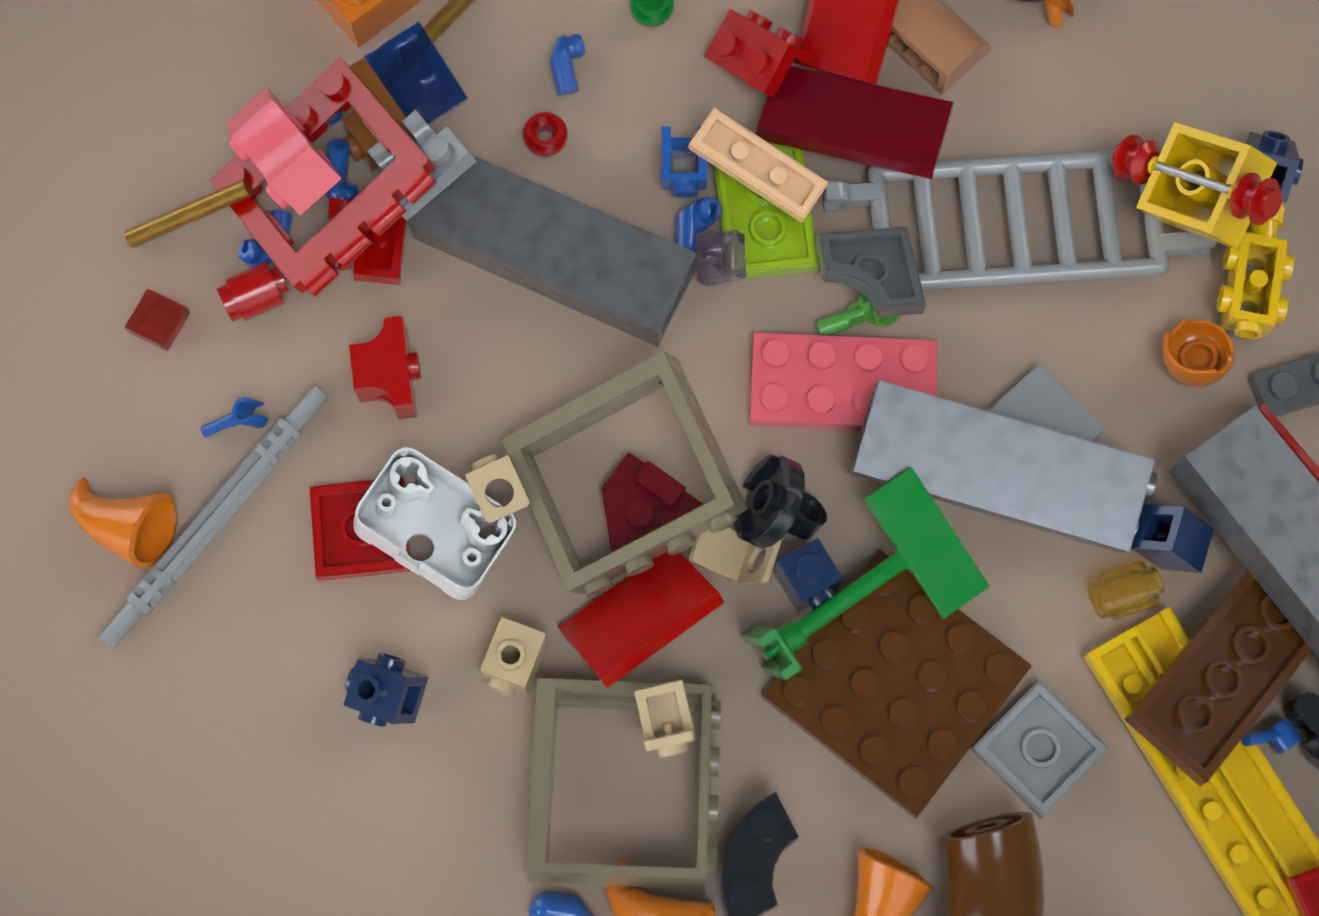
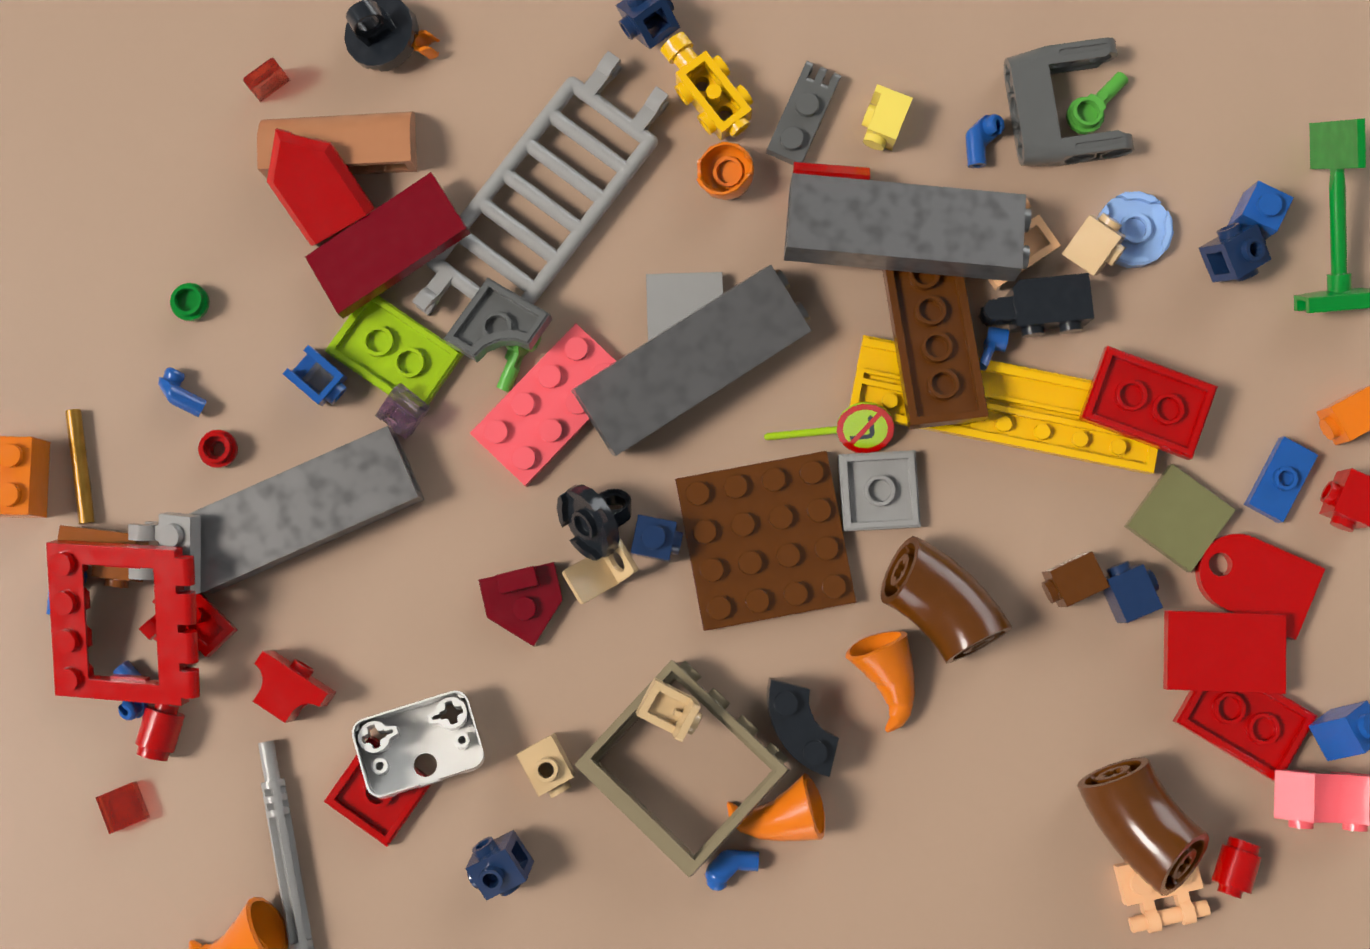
camera: 45 degrees left, 10 degrees up
(188, 213) = (67, 729): pearl gold bar -> none
(241, 414) = (236, 805): blue hand -> none
(282, 152) = (65, 638): coral brick -> none
(338, 153) = (124, 607): blue arm -> none
(416, 75) = (102, 500): clear blue plate -> none
(491, 469) = (415, 681): tan bracket -> none
(591, 408) = (457, 517): dark tan window -> none
(640, 616) = (589, 665): red tile -> none
(695, 220) = (362, 405): blue arm -> none
(755, 52) = (283, 265): red bracket -> none
(758, 165) = (363, 335): light nougat tile -> none
(921, 543) = (698, 453): green piece -> none
(1081, 678) = (860, 428): none -> piece
(1126, 590) = (831, 352): clear yellow brick -> none
(1172, 538) = (825, 295): dark blue brick -> none
(1201, 182) = (625, 72): yellow brick -> none

